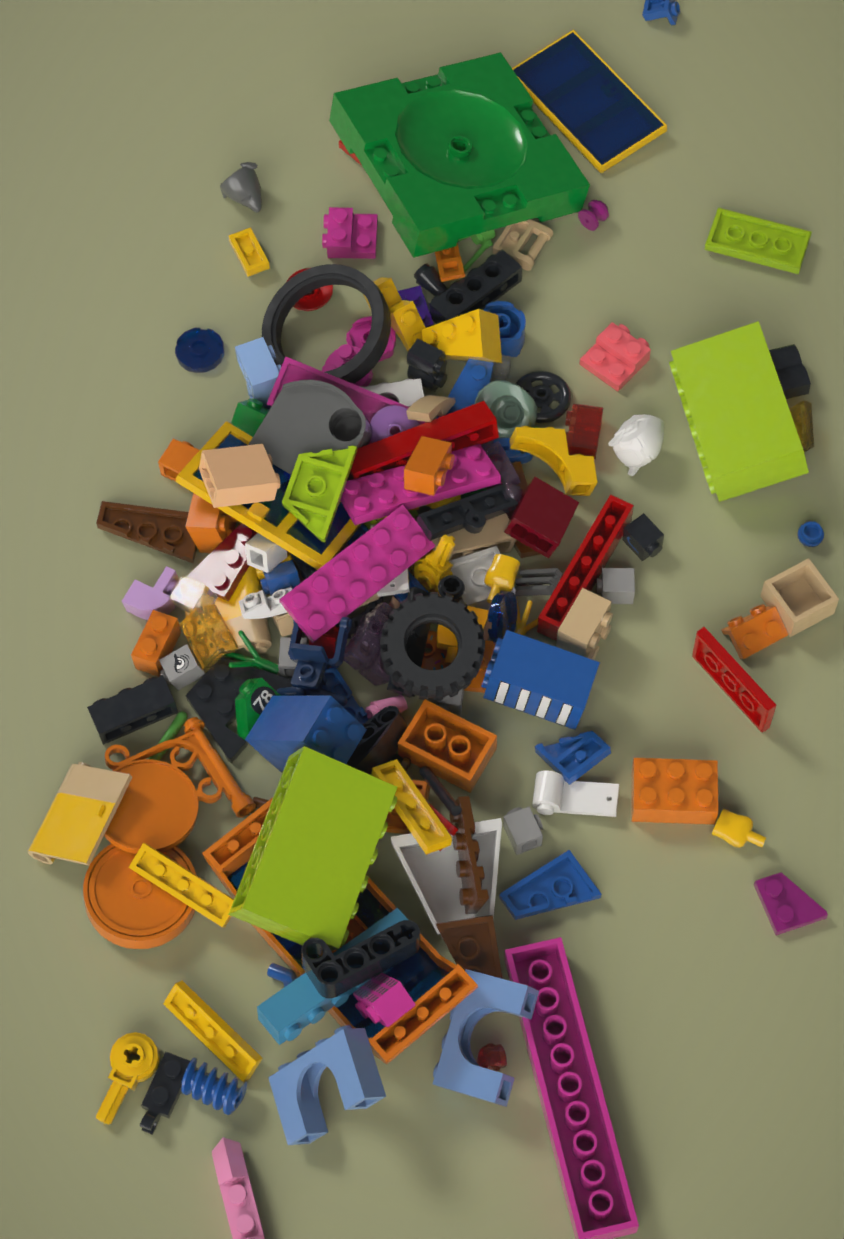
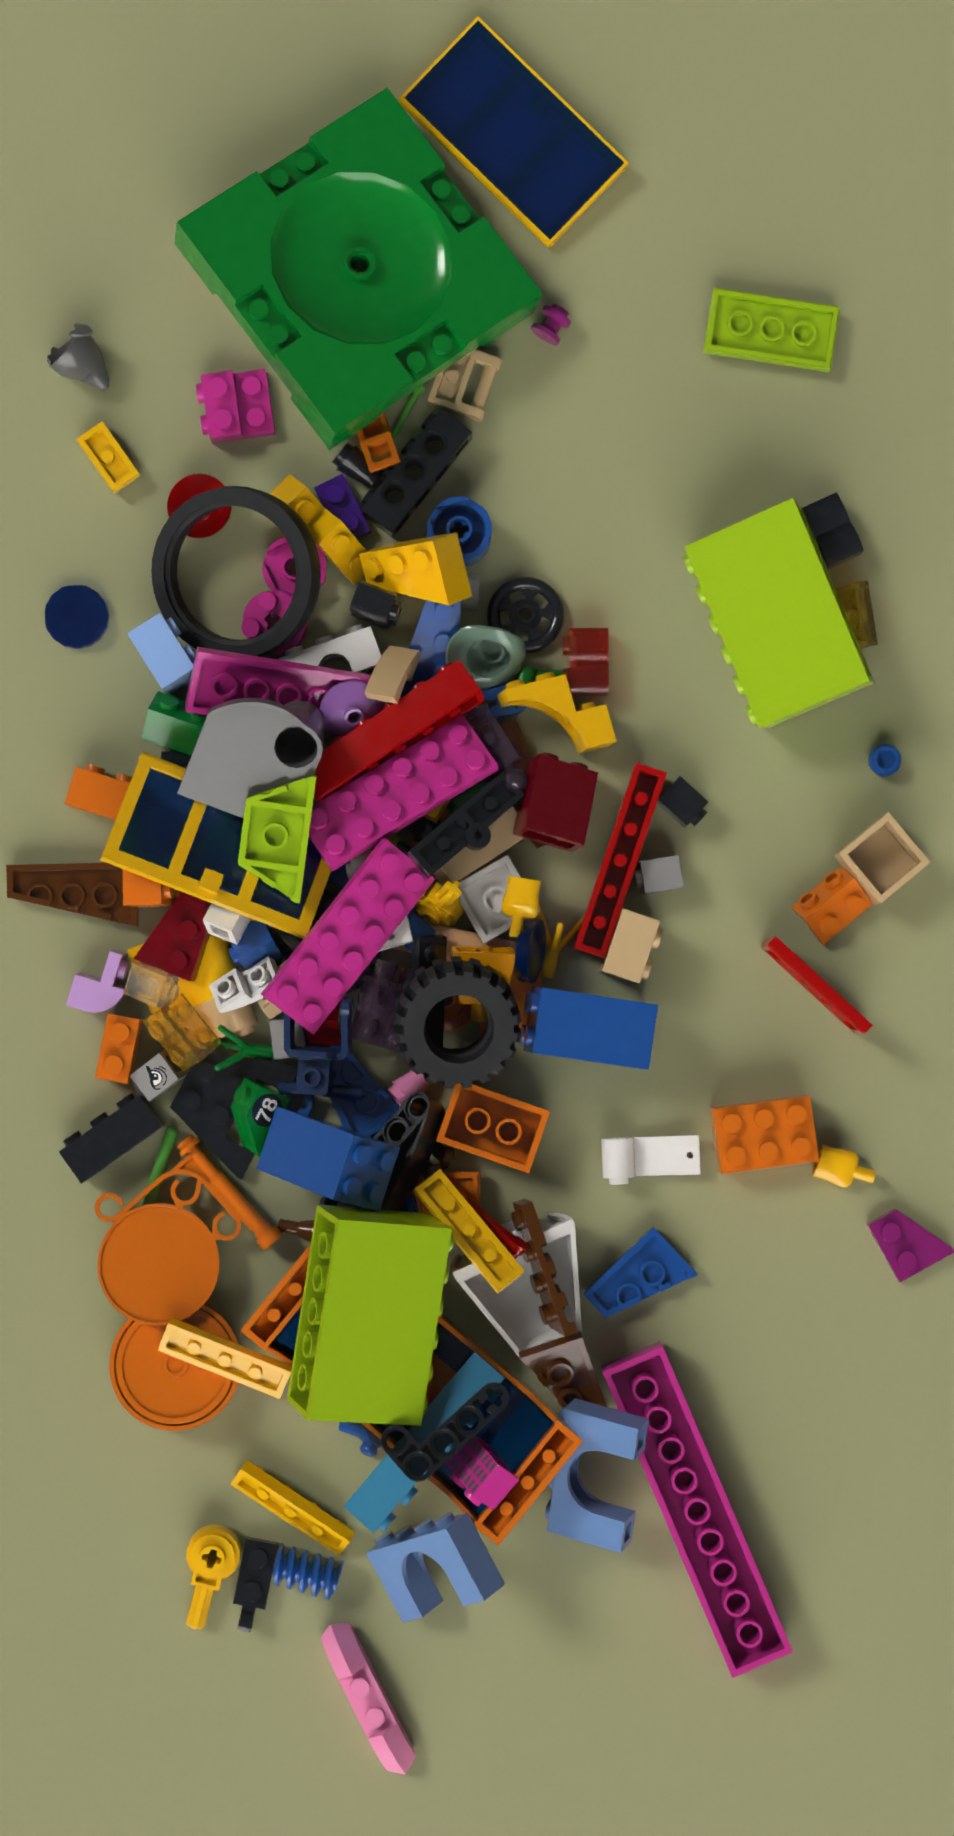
camera: 15 degrees left, 25 degrees up
(79, 815) = (84, 1290): yellow door -> none
(239, 475) = (178, 843): light nougat brick -> none
(428, 466) = (408, 779): orange brick -> none
(440, 791) = (496, 1192): black bar -> none
(451, 585) = (474, 931): black cone -> none
(492, 1057) = (605, 1483): clear red plate -> none
(523, 829) = (597, 1209): light grey brick -> none
(537, 578) = (545, 886): dark grey tile -> none
(574, 755) = (641, 1105): blue wing -> none
(616, 356) = (611, 540): coral plate -> none
(638, 441) = (659, 672): white helmet -> none

